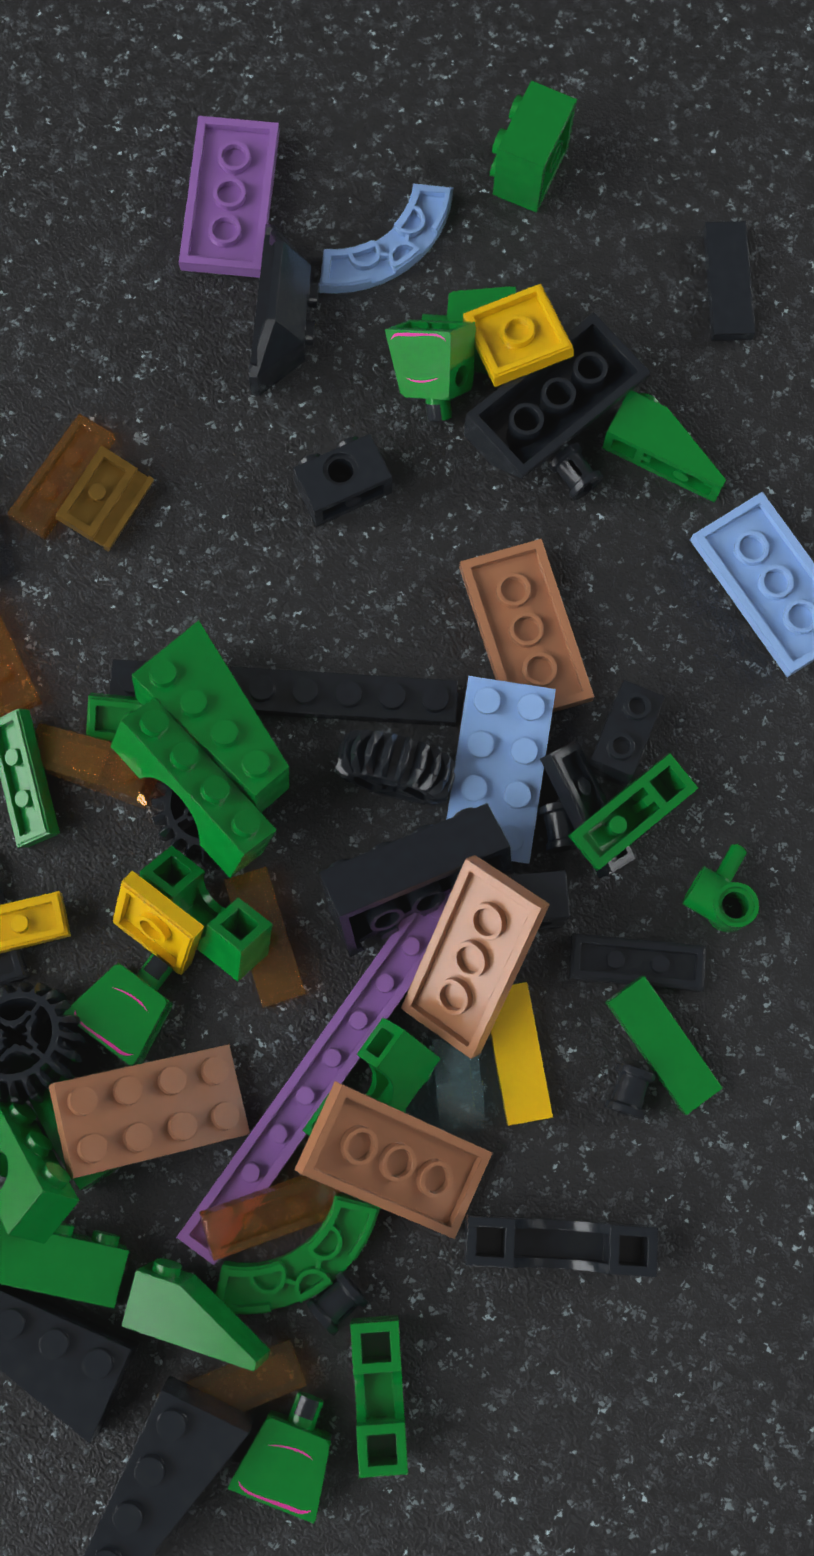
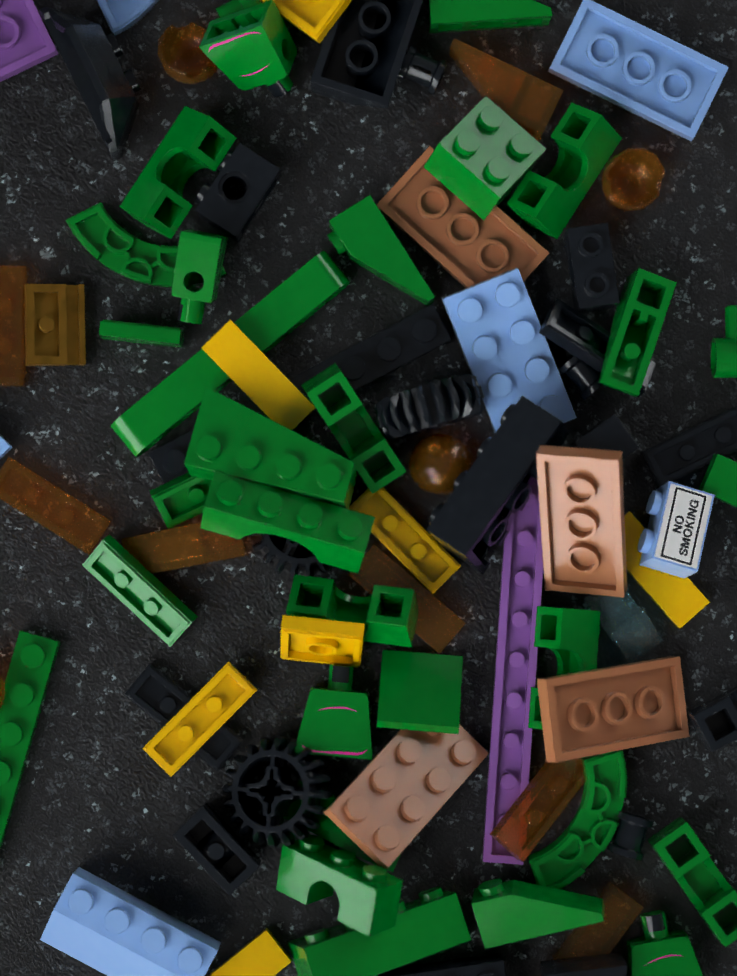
camera: 30 degrees left, 10 degrees up
(176, 550) = (141, 333): none -> green tile
(219, 1031) = (420, 691): none -> green tile
(220, 492) = (124, 252): none -> green tile
(247, 614) = (263, 324): none -> green beam
(254, 644) = (257, 376): none -> yellow tile
(270, 508) = (202, 254): none -> green torso
(299, 880) = (407, 539): none -> yellow tile
(312, 744) = (353, 428): none -> green arch
(322, 415) = (190, 145): none -> green arch
(366, 336) = (182, 56): none -> clear orange hair
(371, 823) = (438, 463): none -> clear orange hair
(435, 598) = (375, 247): none -> green slope
(560, 1024) = (675, 529): none -> brick
(584, 574) = (484, 157): none -> green brick
(646, 540) = (516, 92): none -> clear orange slope
(684, 620) = (584, 147): none -> green arch
(712, 675) = (632, 179): none -> clear orange hair

